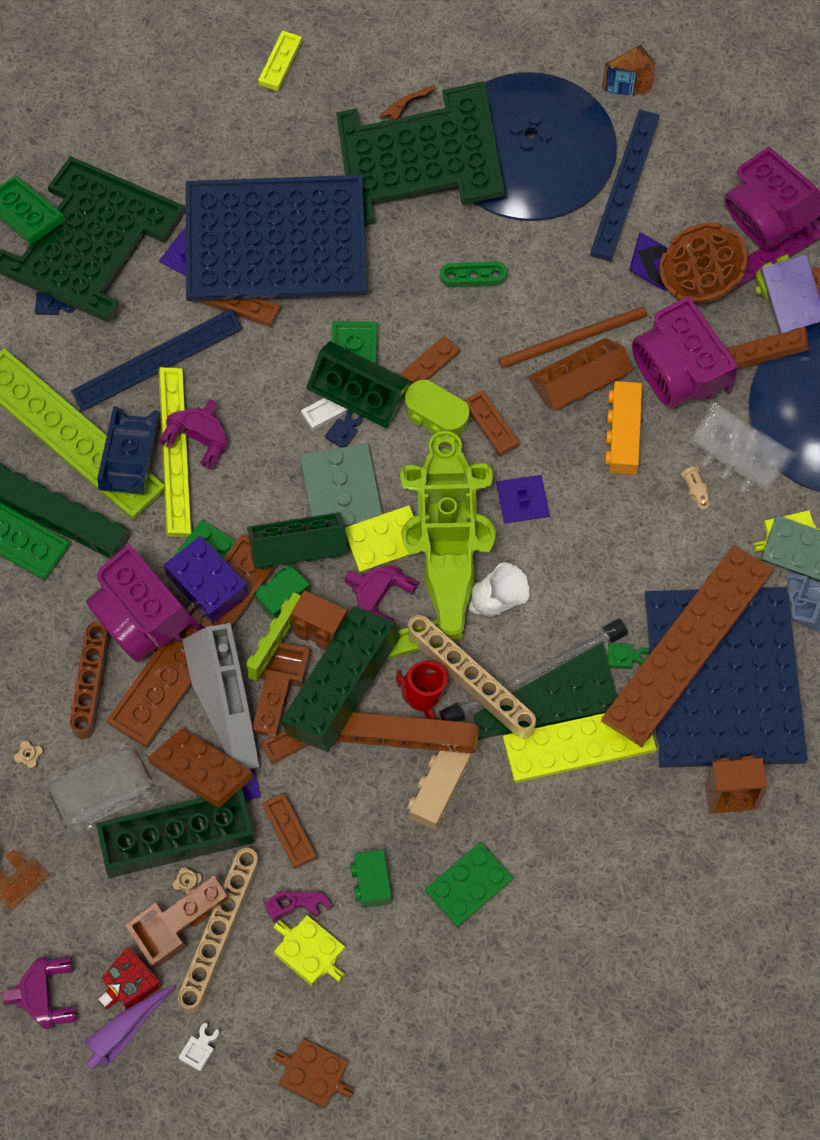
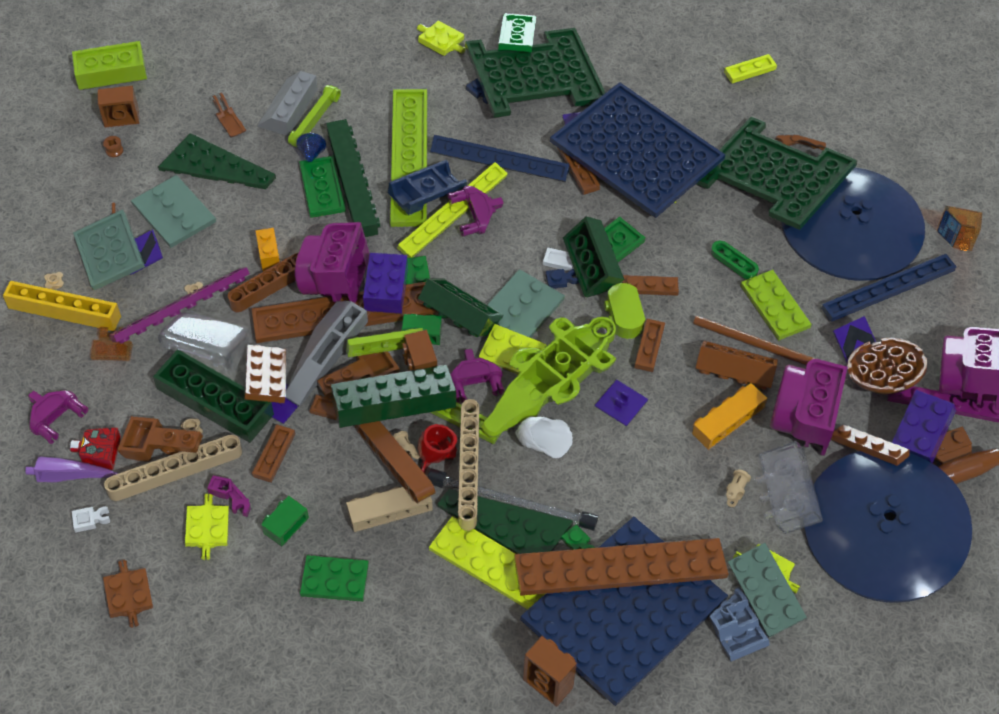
camera: 45 degrees right, 10 degrees down
(37, 782) = (174, 308): none -> magenta plate
(50, 649) = (267, 248): none -> light orange brick
(386, 709) = (402, 438): none -> tan piece
(550, 286) = (775, 305): none -> lime plate

